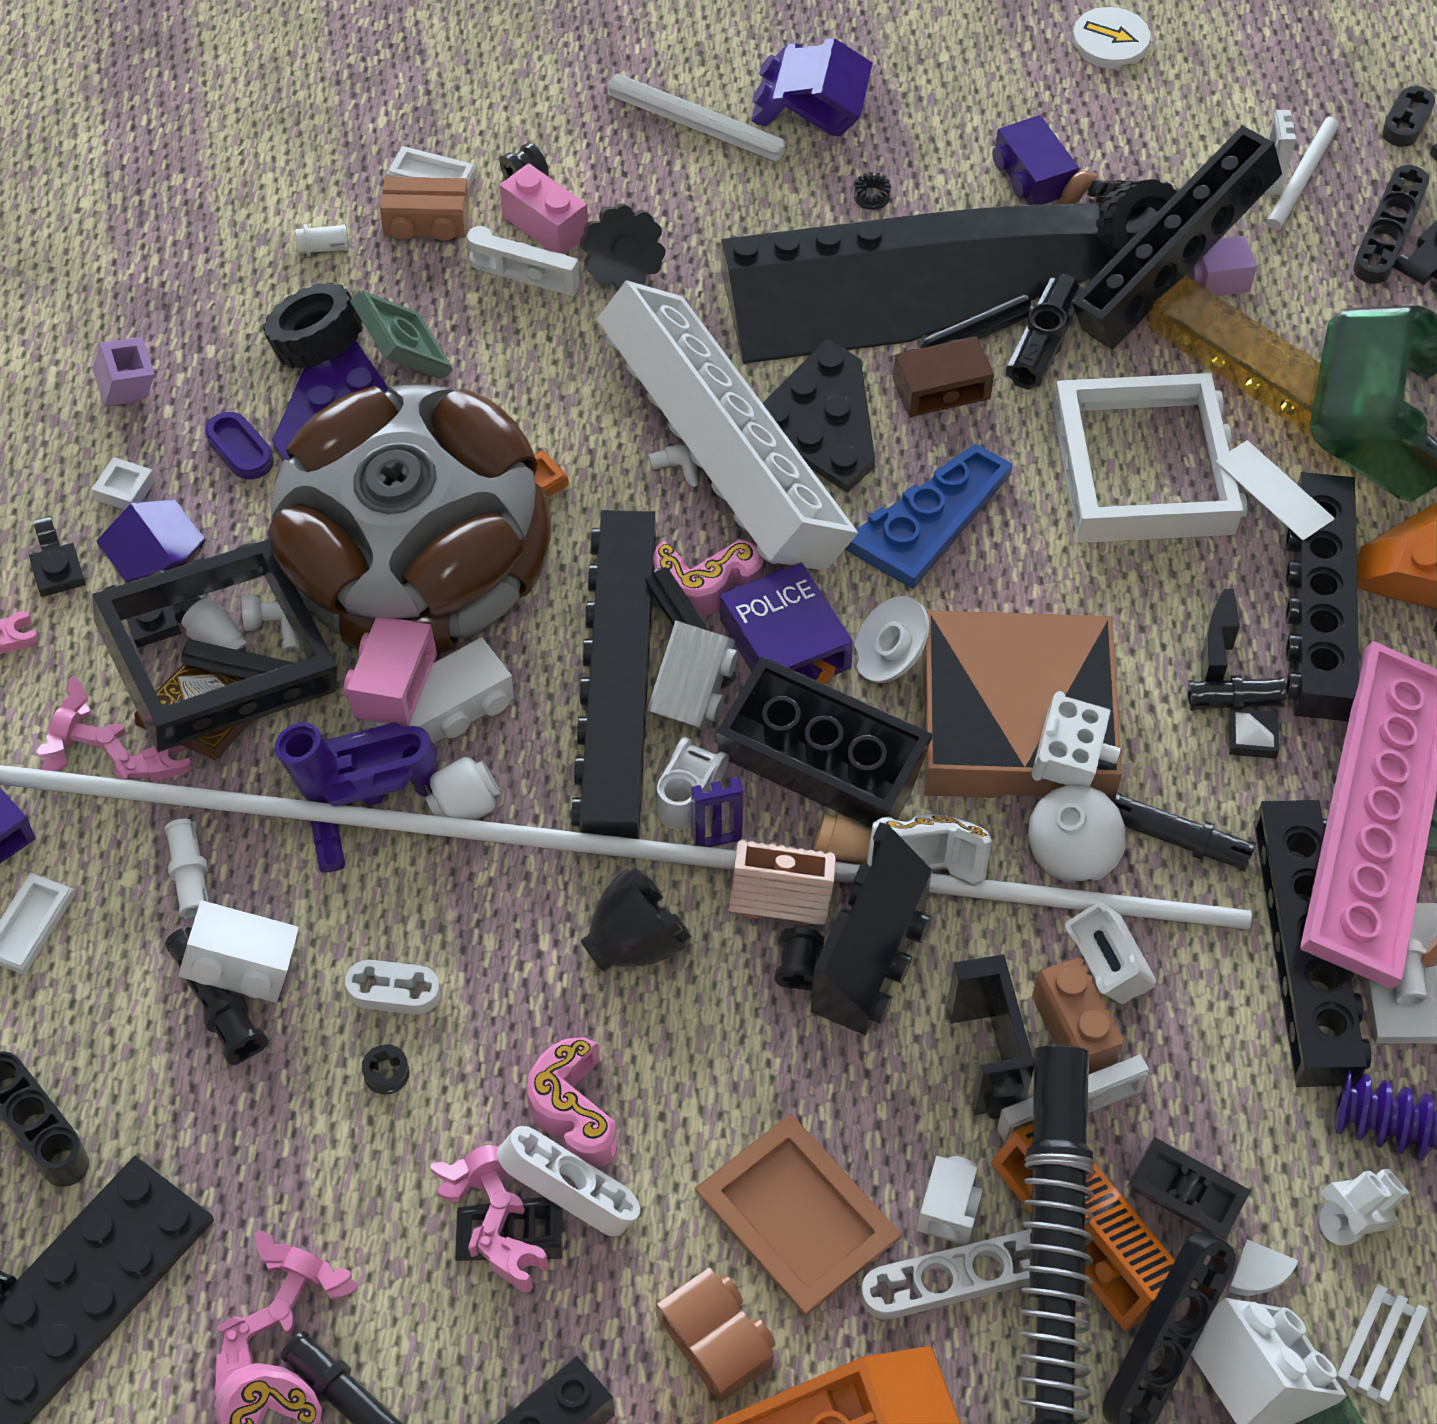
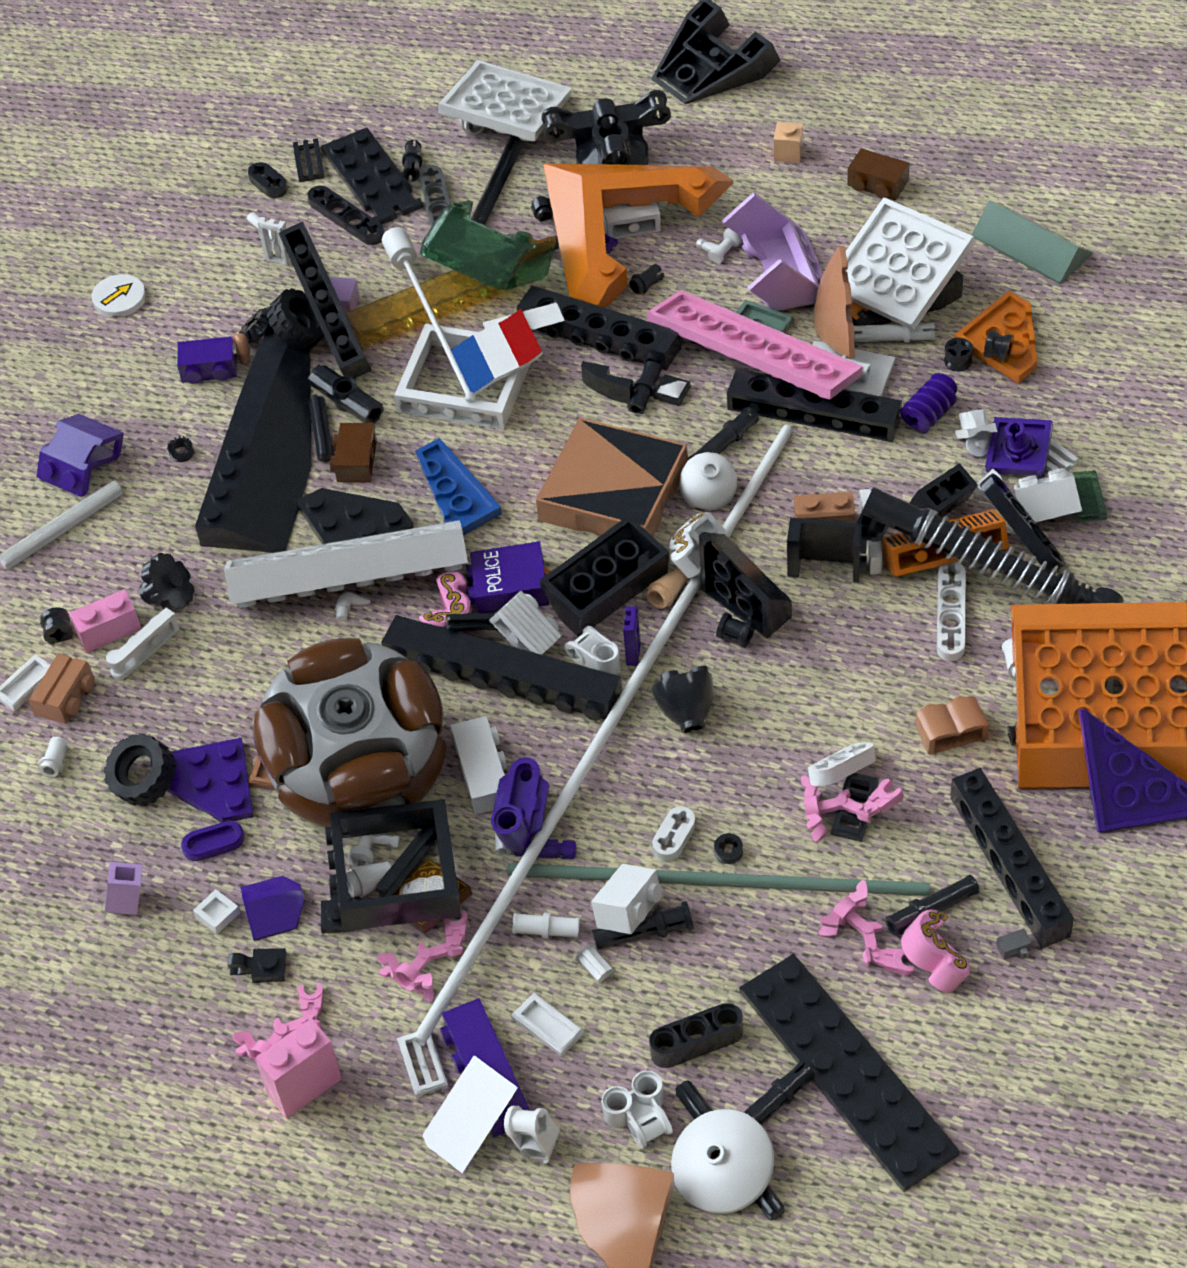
camera: 65 degrees left, 5 degrees down
(137, 950) = (594, 963): none -> white piece
(335, 1105) = (733, 880): none -> sand green piece
(390, 671) = (464, 769): bright pink brick -> none
(401, 335) = (177, 719): sand green tile -> none
(463, 790) = (556, 764): white head -> none
(564, 1110) = (788, 764): bright pink animal -> none
(781, 883) = (688, 620): nougat brick -> none
(798, 1214) = (890, 673): nougat piece -> none
(891, 639) = (528, 521): white dish -> none
(950, 1200) = (909, 601): white brick -> none
(1073, 742) = (663, 455): white piece -> none
(1111, 953) = (793, 481): white piece -> none
(1197, 471) = (484, 355): none -> flag
(1358, 1271) = (1019, 437): none -> dark purple plate

